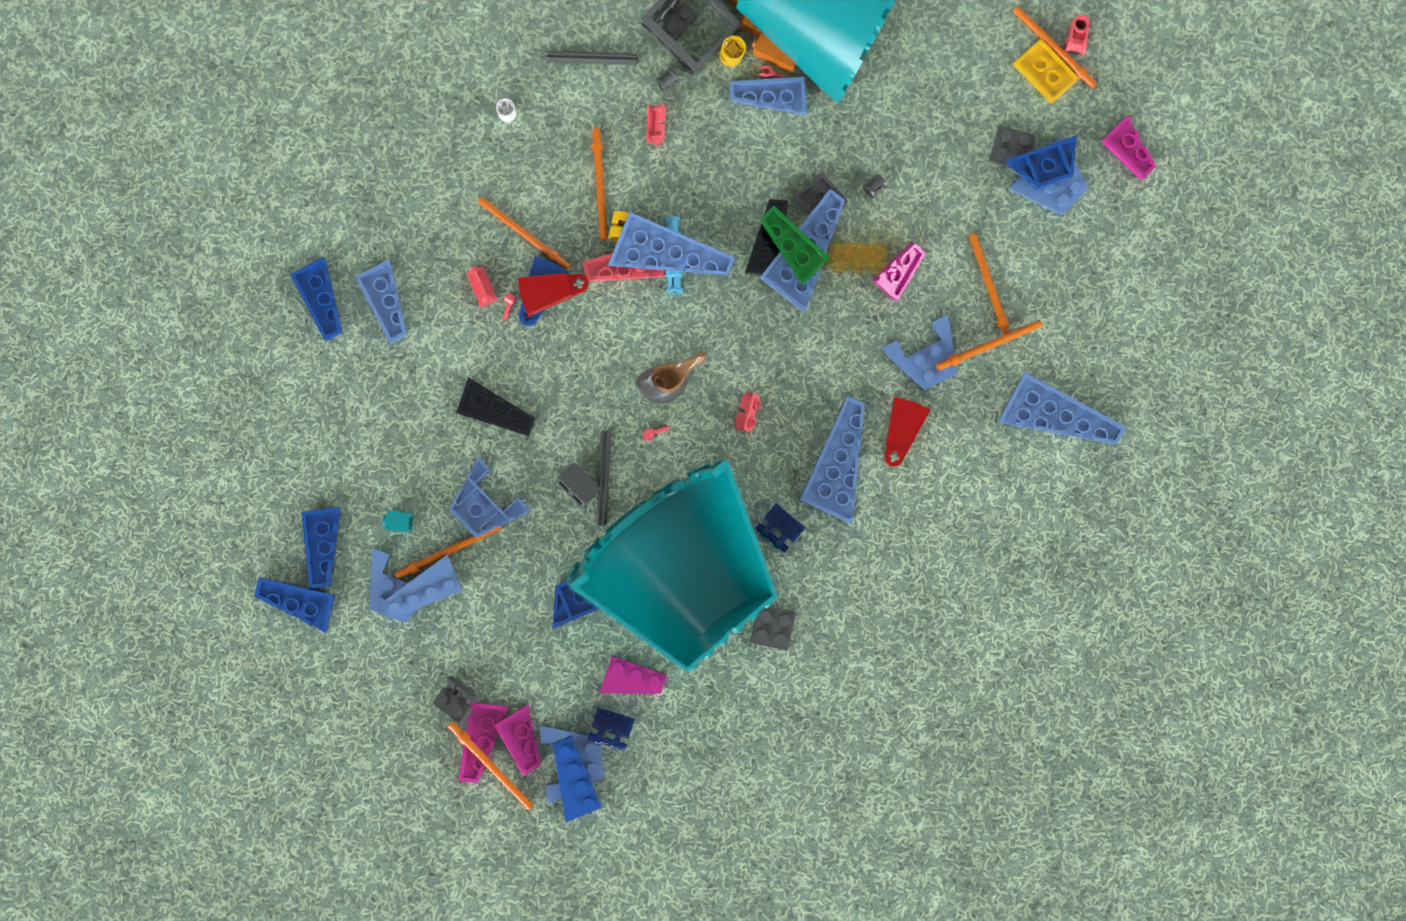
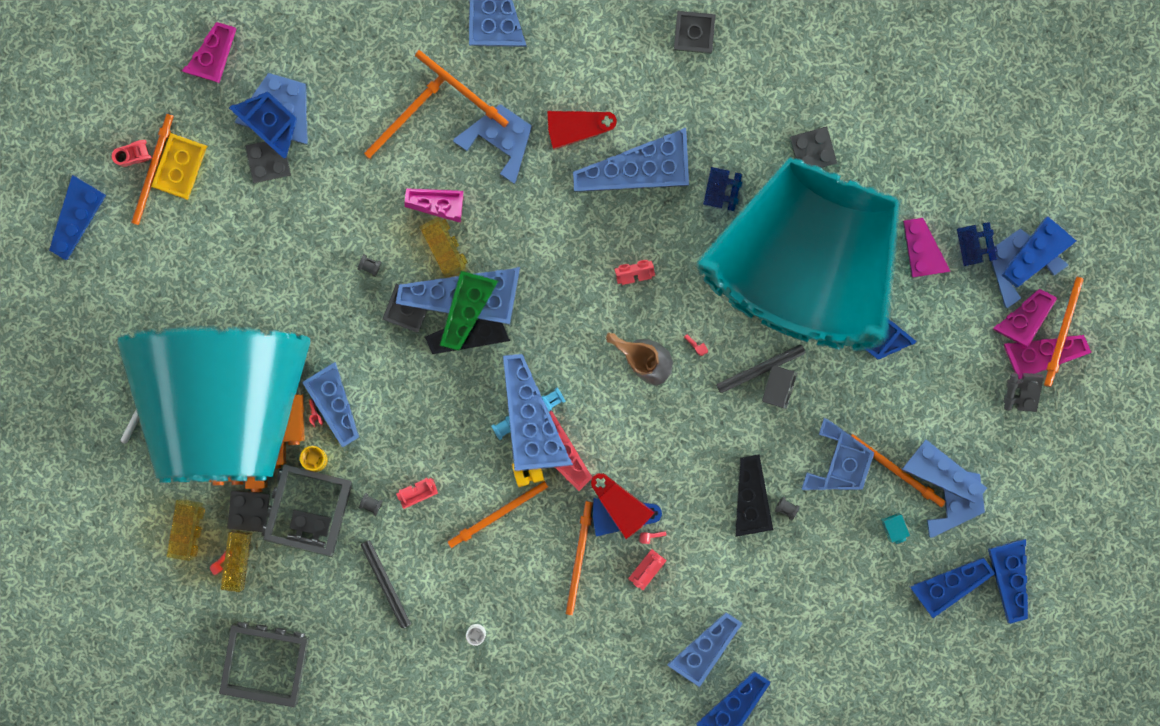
camera: 115 degrees left, 5 degrees up
(468, 435) = (787, 508): none -> dark grey bush
(933, 577) = (694, 32): none -> dark grey plate

